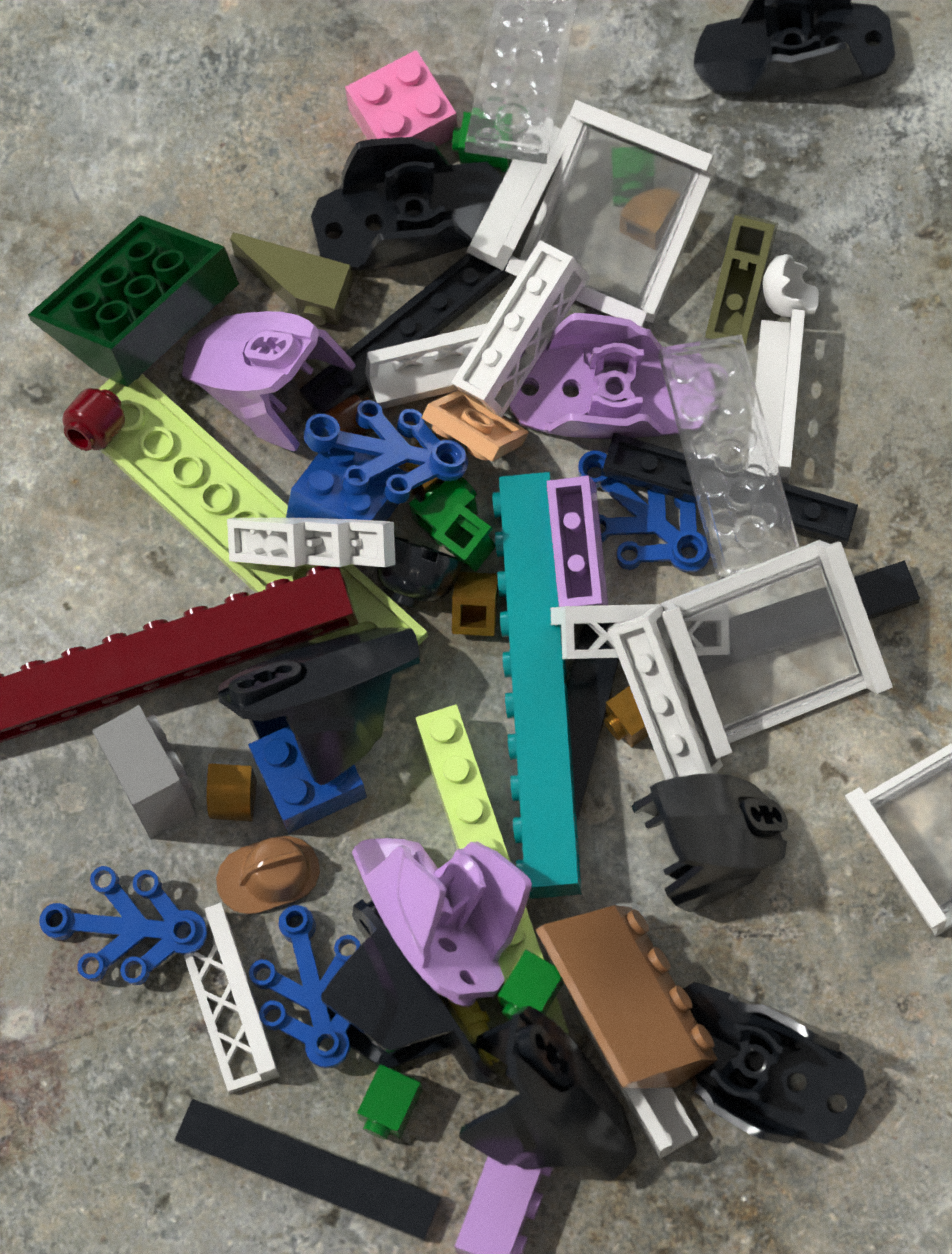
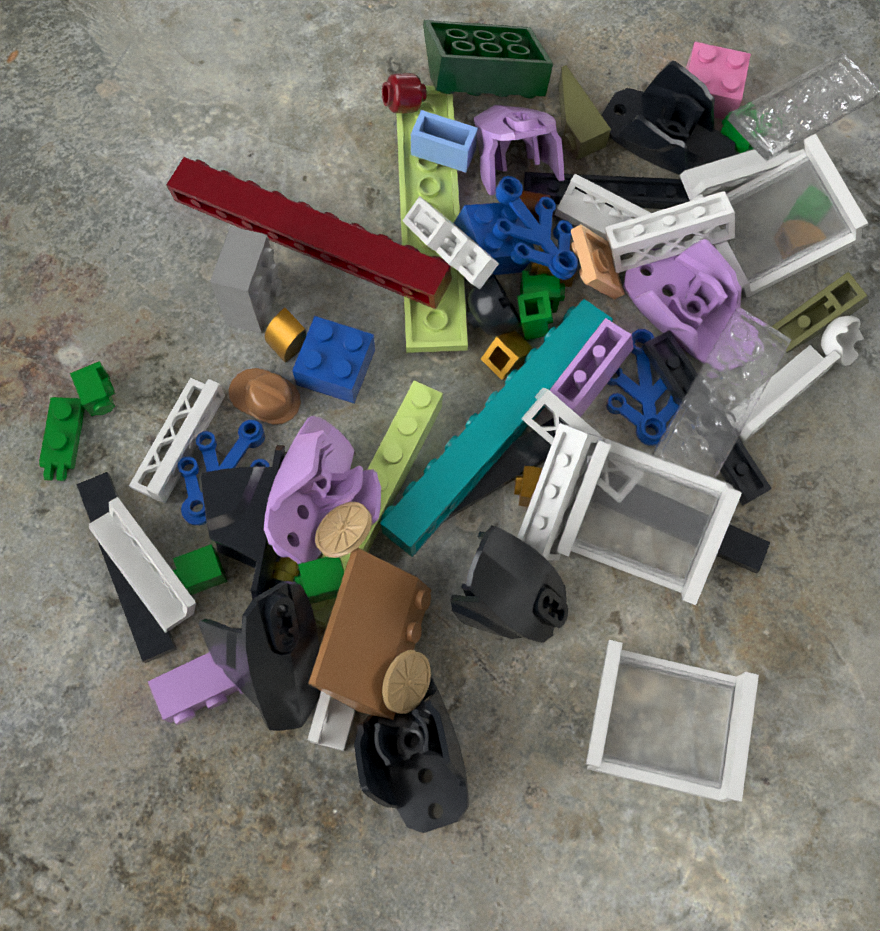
camera: 35 degrees right, 0 degrees up
(91, 1030) = (94, 389): none -> green brick
(103, 1109) = (61, 437): none -> green hinge
(130, 927) = (166, 356): blue plant -> none
(194, 436) = (443, 141): none -> light blue piece
(326, 694) = (373, 324): black piece -> none
(332, 1147) = (143, 566): none -> white fence
(507, 923) = (343, 529): none -> tan wheel
(700, 1009) = (406, 681): none -> tan wheel

